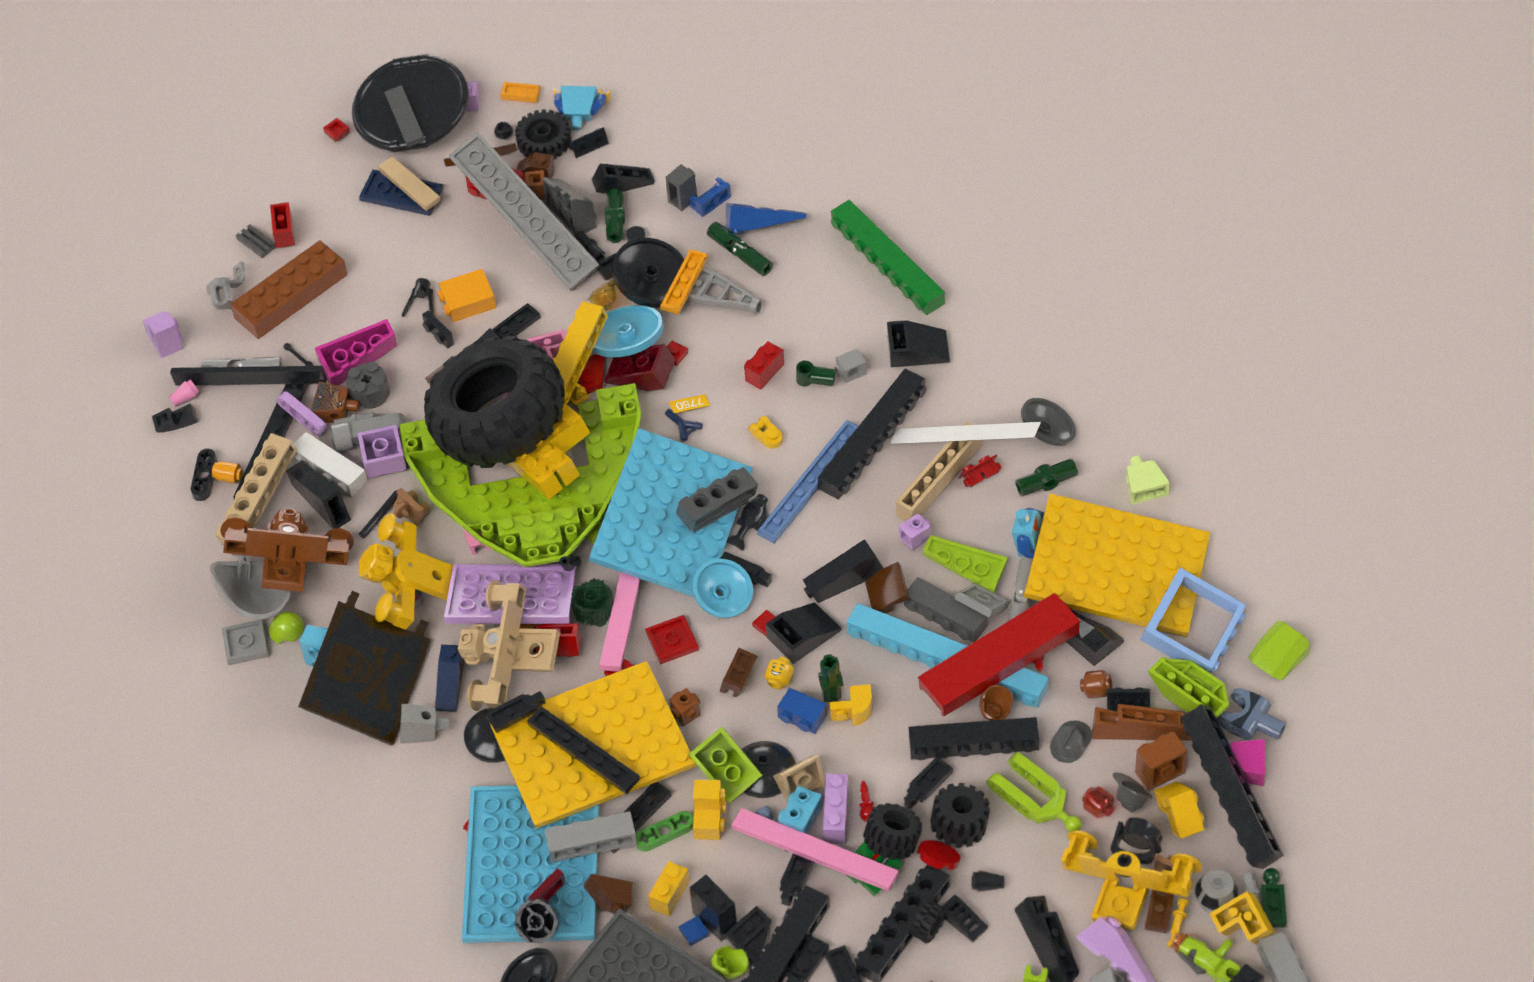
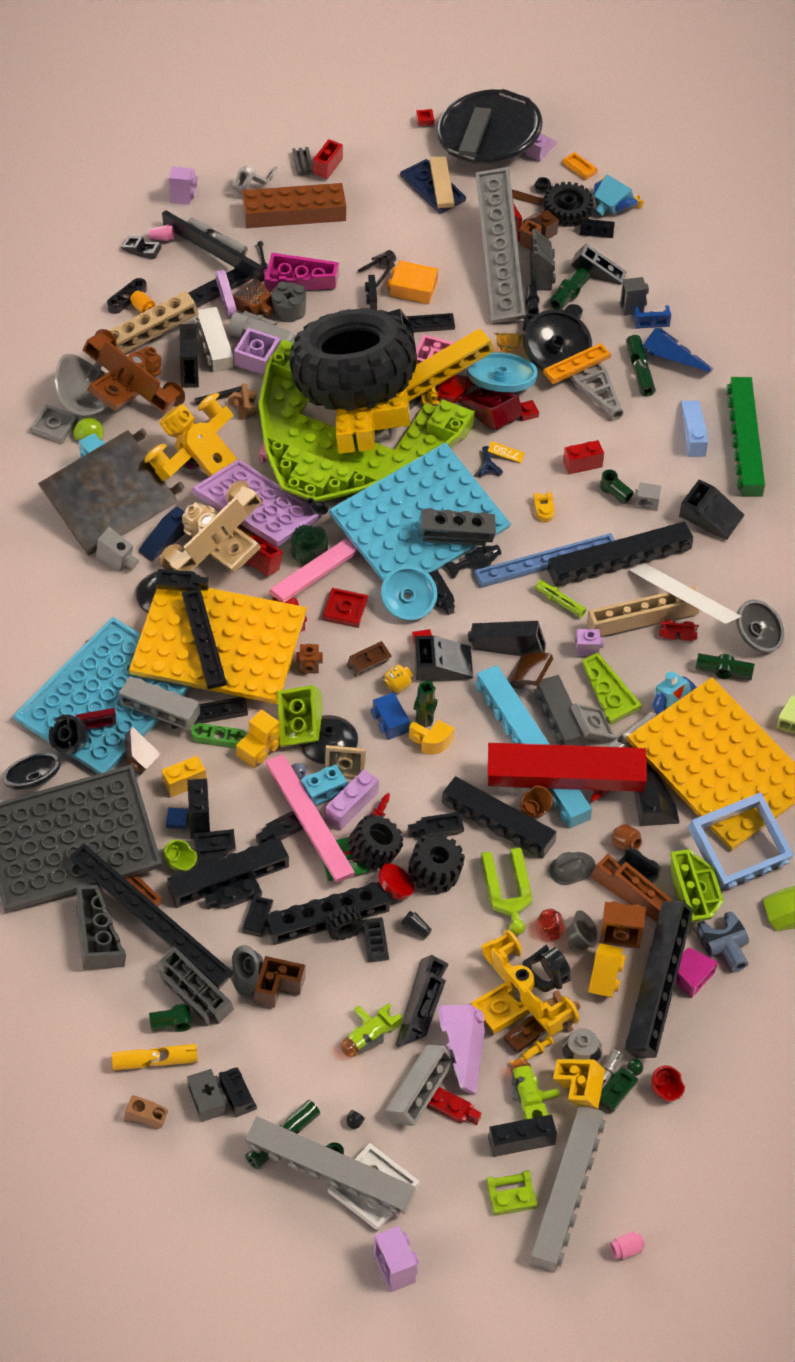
camera: 30 degrees right, 0 degrees up
(836, 277) = (694, 429): none -> light blue slope
(854, 507) = (562, 599): none -> lime pin
(1310, 871) = (667, 1083): none -> red hair

